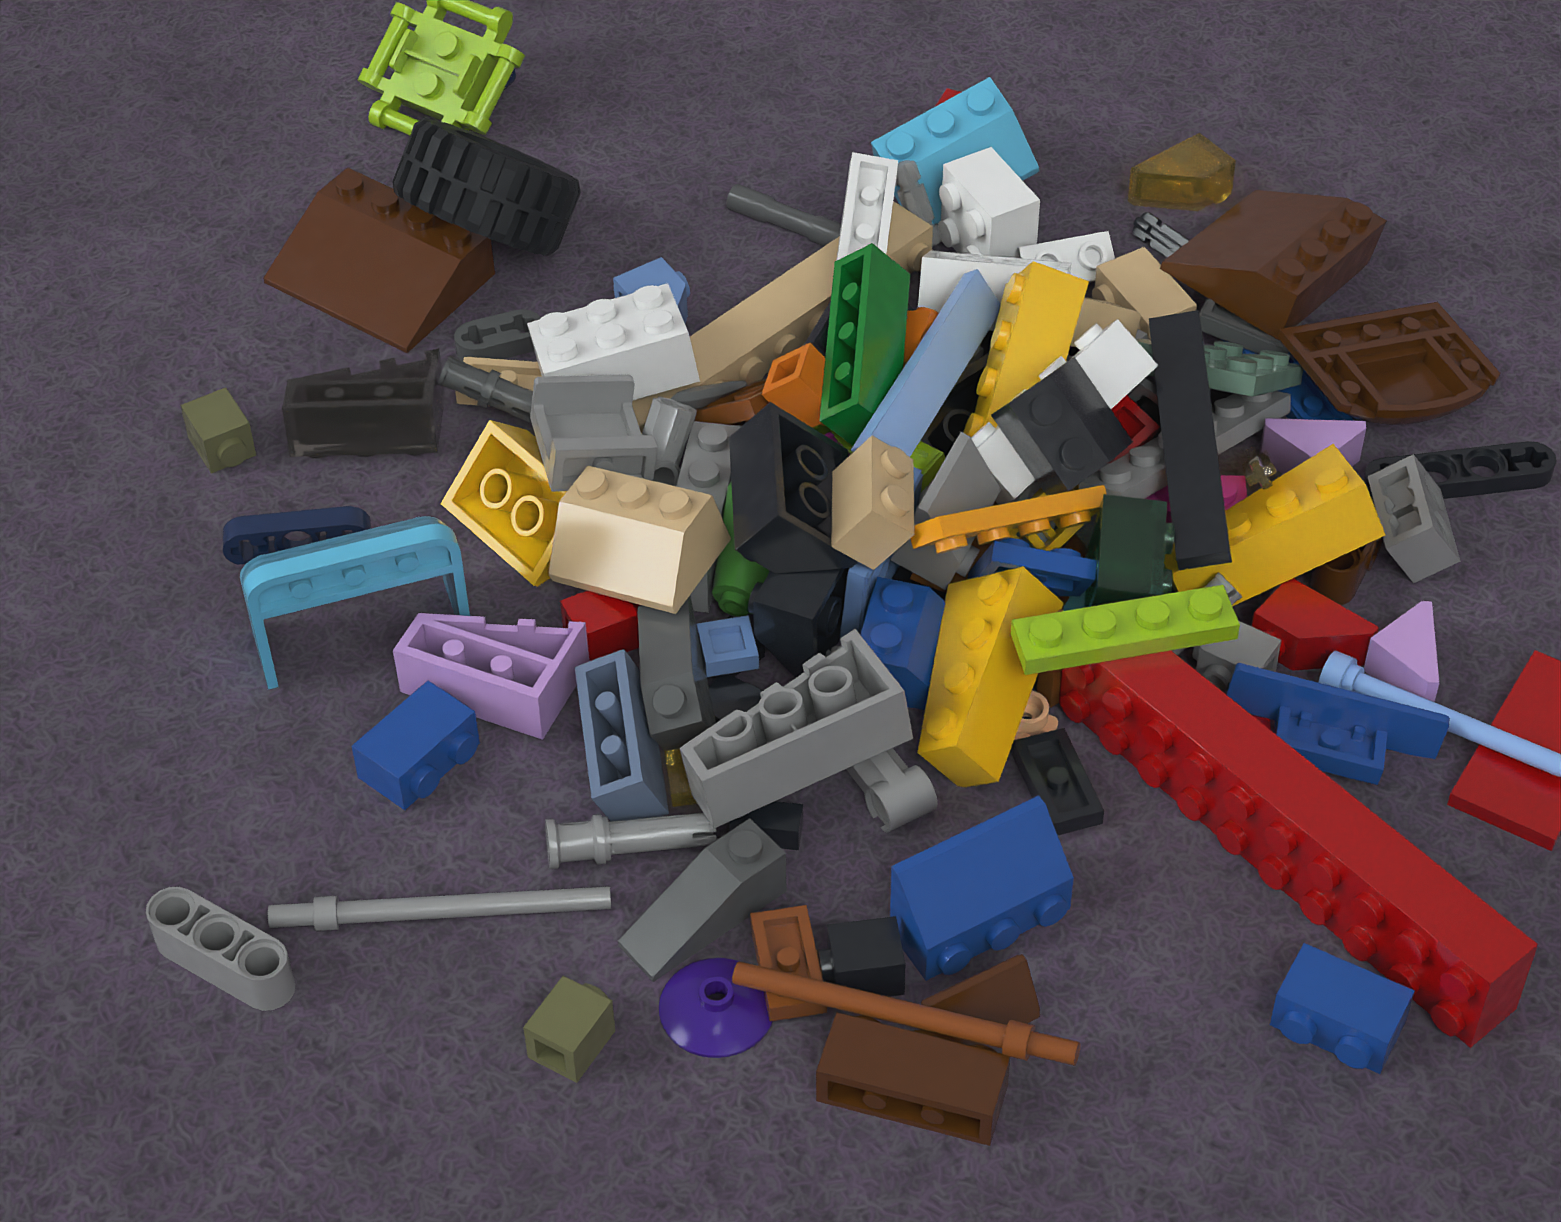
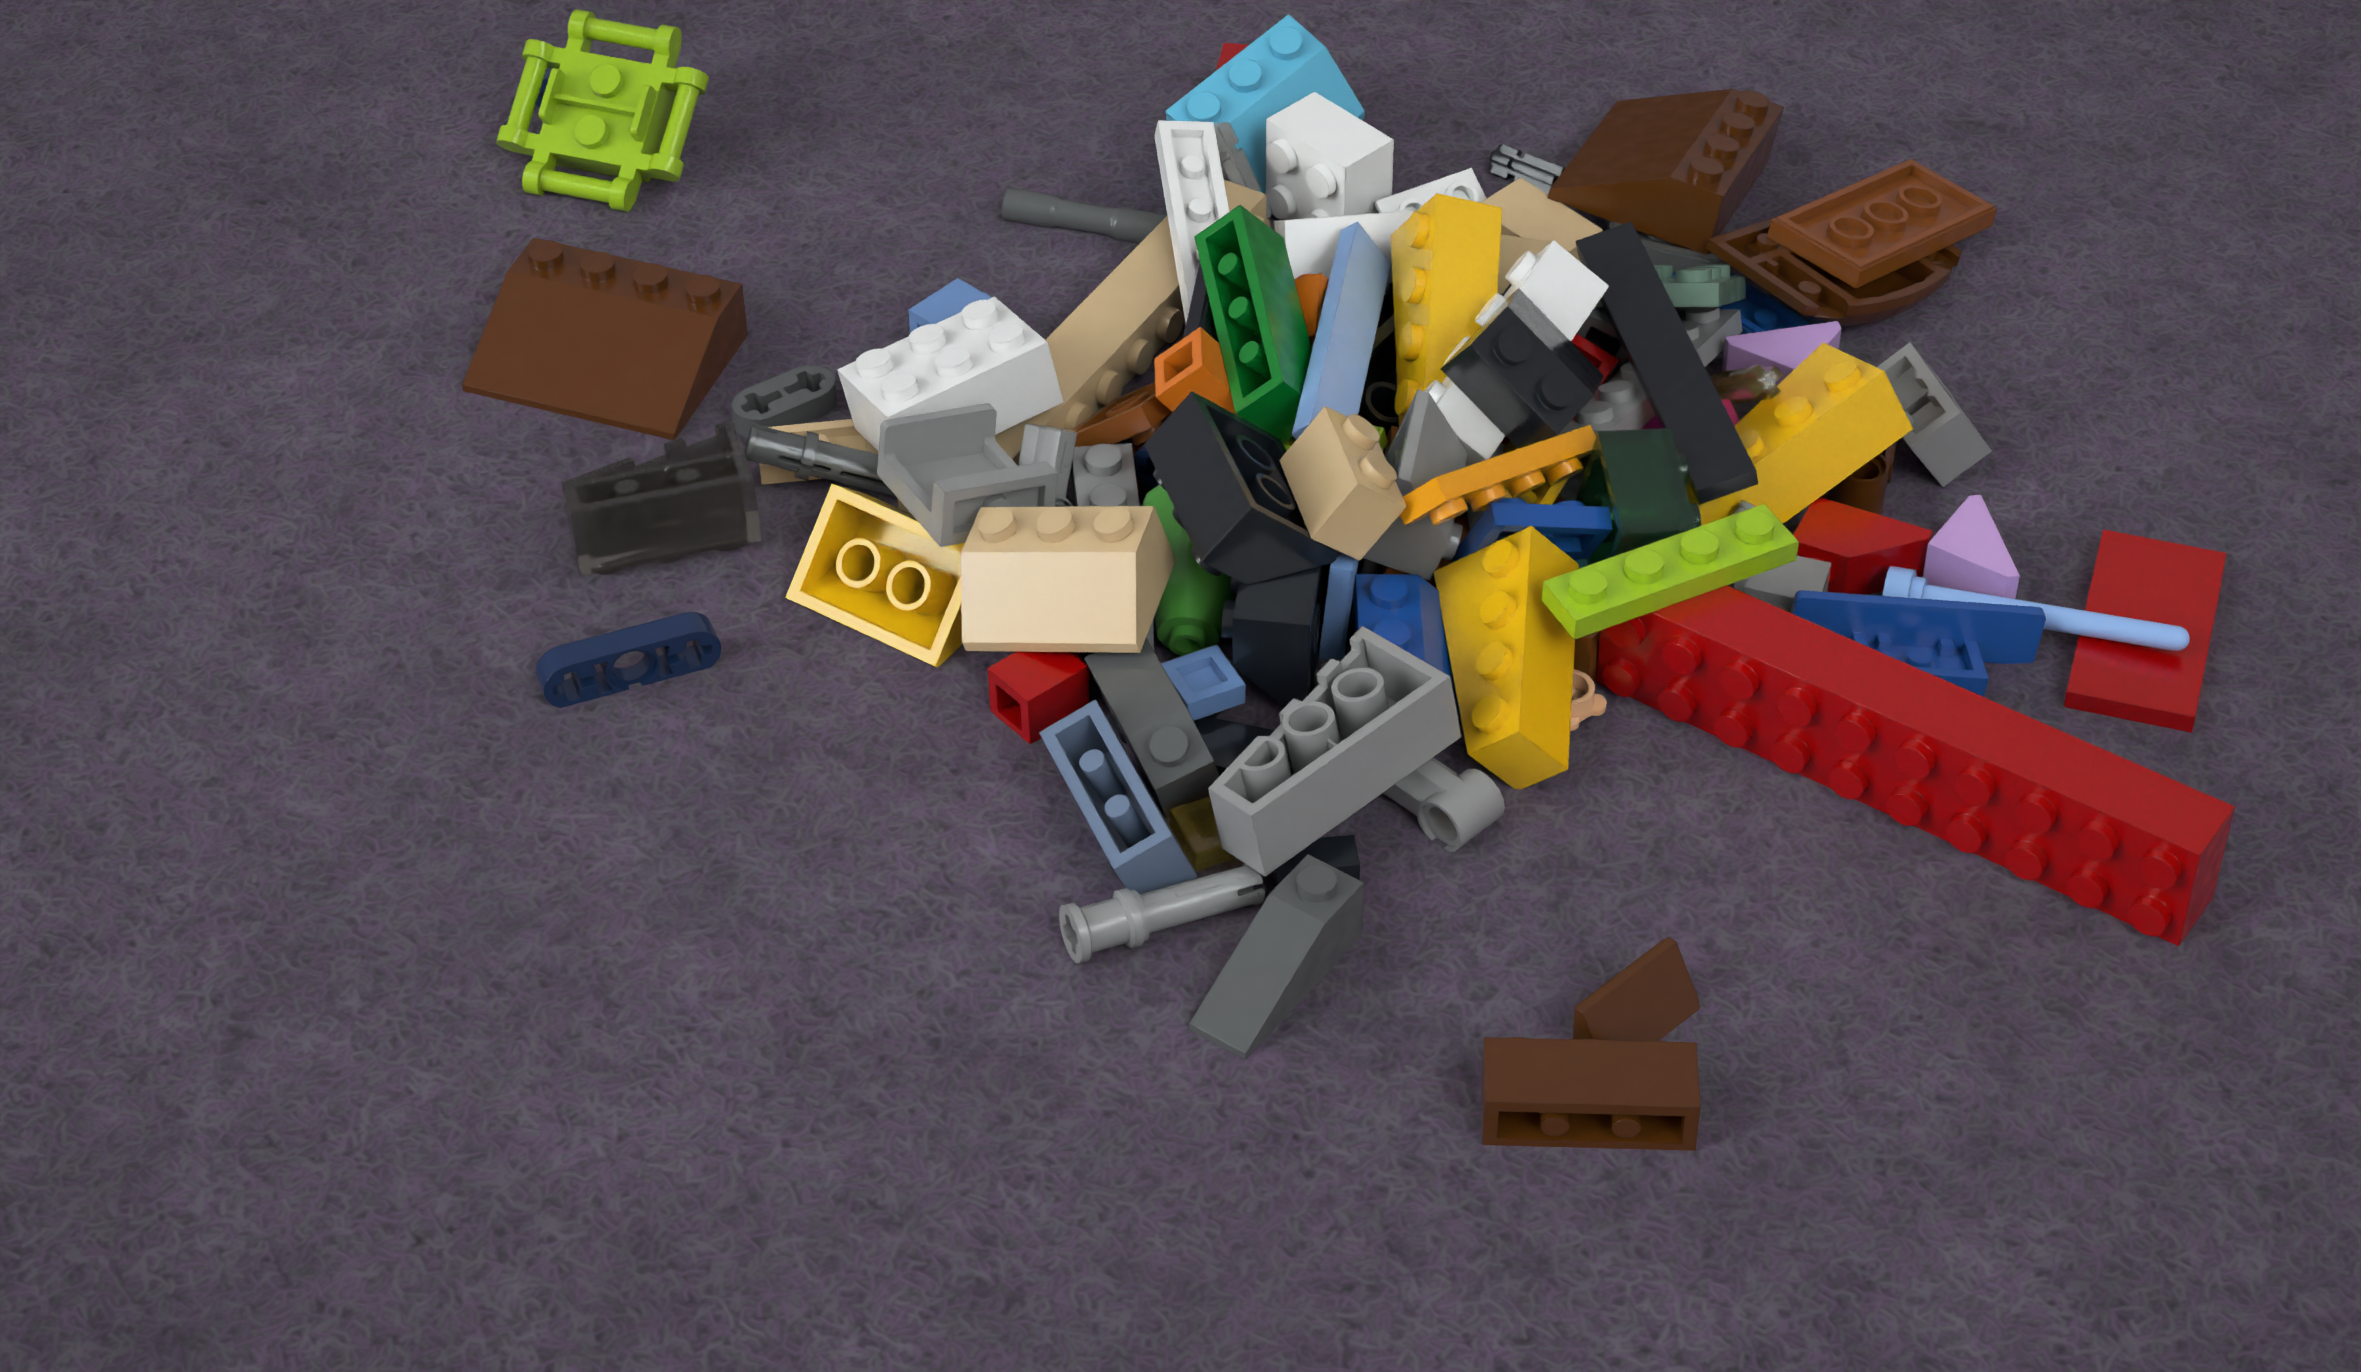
camera: 15 degrees left, 5 degrees down
(194, 931) = (724, 1119): light grey beam -> none
(218, 430) = (483, 560): olive brick -> none
(329, 912) = (834, 1059): light grey bar -> none
(350, 568) = (729, 669): medium azure windscreen -> none
(416, 745) = (871, 858): blue brick -> none
(486, 187) = (727, 226): black tyre -> none
(502, 672) = (930, 760): lavender wedge -> none
(570, 1028) = (1176, 1121): olive brick -> none
(704, 395) = (1075, 416): dark grey bar -> none
(709, 1025) = (1330, 1089): dark purple dish -> none
(786, 944) = (1399, 1005): dark orange plate -> none
(865, 956) = (1486, 983): black brick -> none
(981, 889) = (1594, 882): blue slope -> none
(1015, 1038) = (1698, 1022): dark orange bar -> none
(1059, 778) = (1631, 760): black plate -> none
(1183, 176) = (1530, 99): clear yellow slope -> none
(1341, 1008) = (2033, 928): blue brick -> none
(1437, 338) = (1882, 223): none -> dark orange tile
(1500, 458) = (2010, 344): black beam -> none

